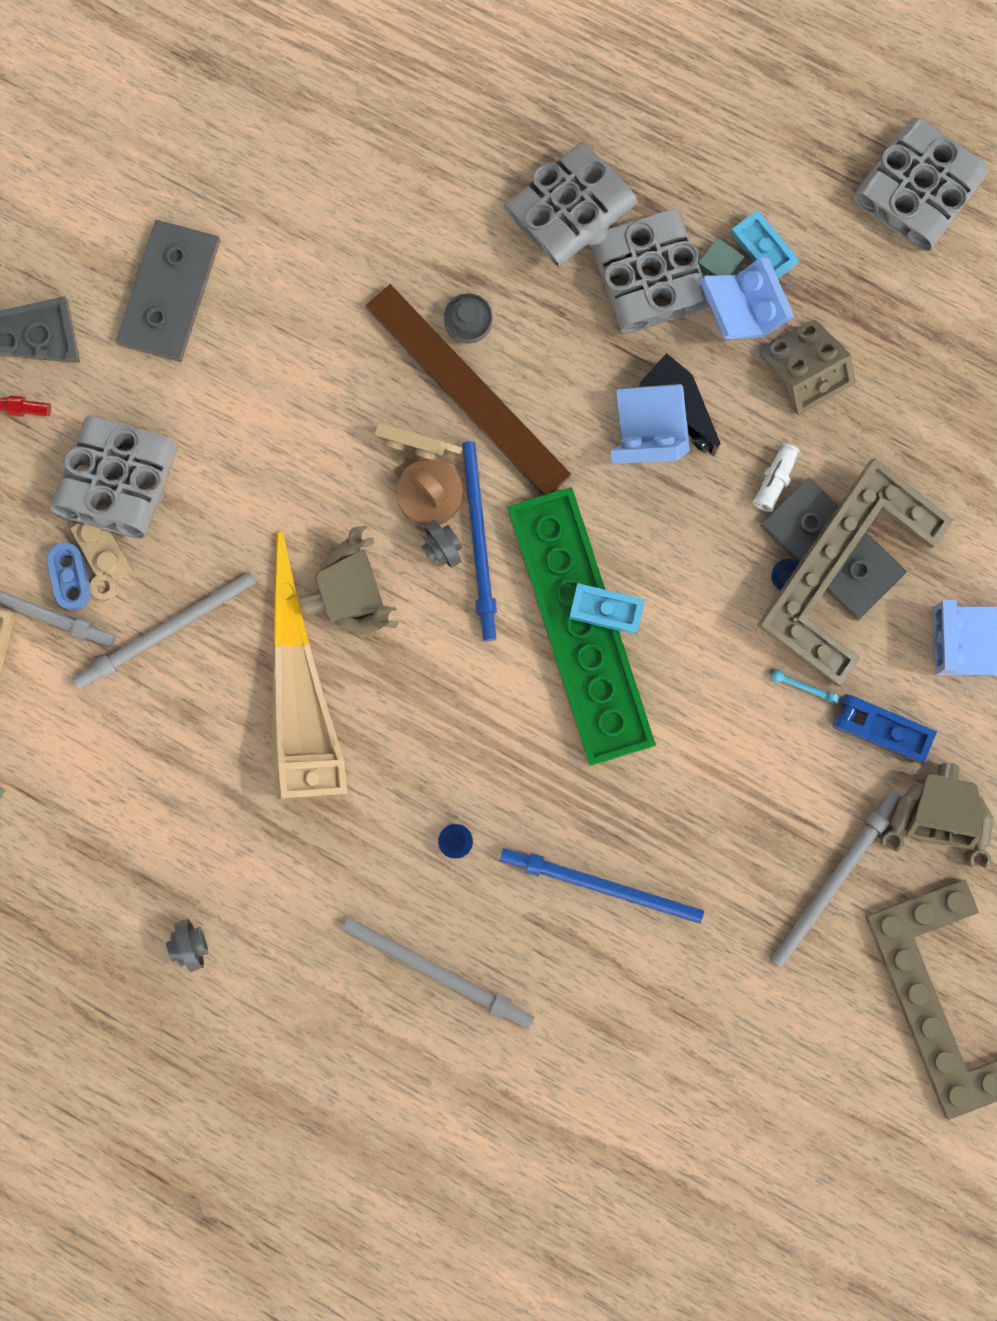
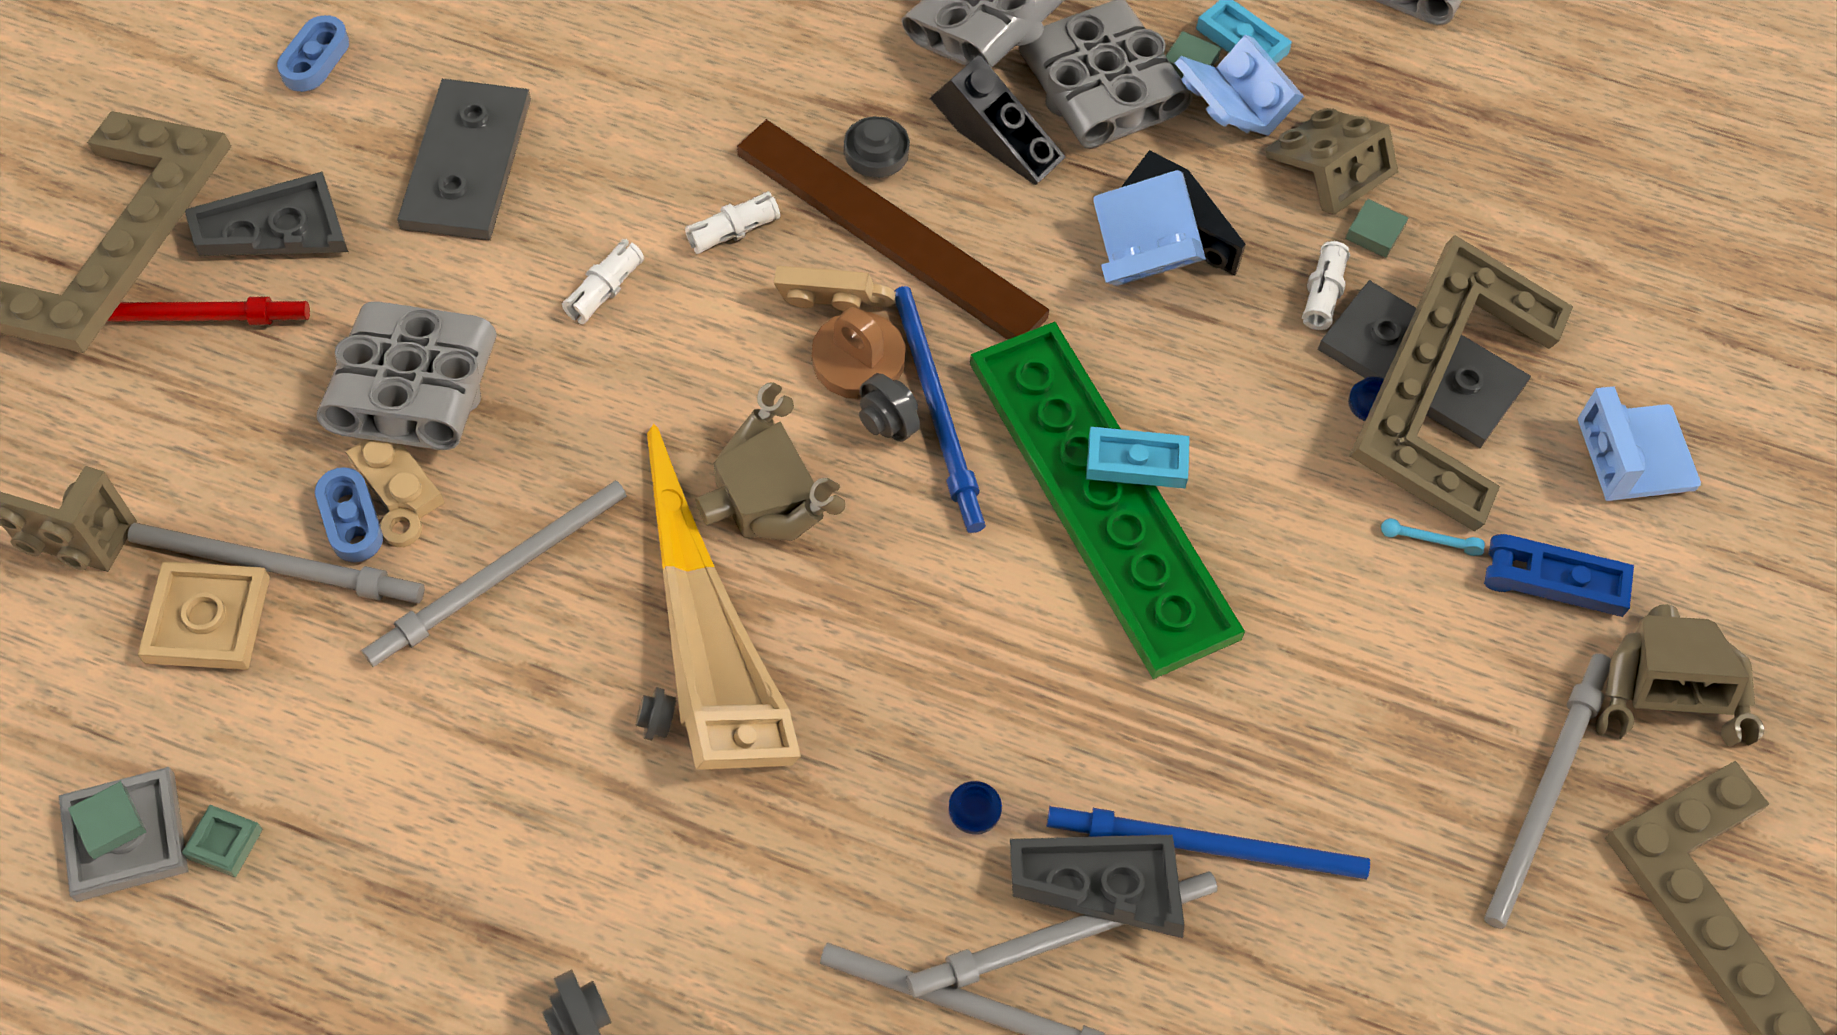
camera: 15 degrees left, 20 degrees down
(60, 185) = (307, 58): none -> medium blue plate
(257, 410) = (603, 281): none -> white pin
(257, 750) = (656, 714): none -> dark grey plate
(354, 371) = (732, 222): none -> white pin
(429, 949) = (965, 967): none -> light grey bar
(527, 902) = (1103, 877): none -> dark grey wing
(561, 307) = (996, 121): none -> black slope
(827, 431) = (1376, 228): none -> sand green tile

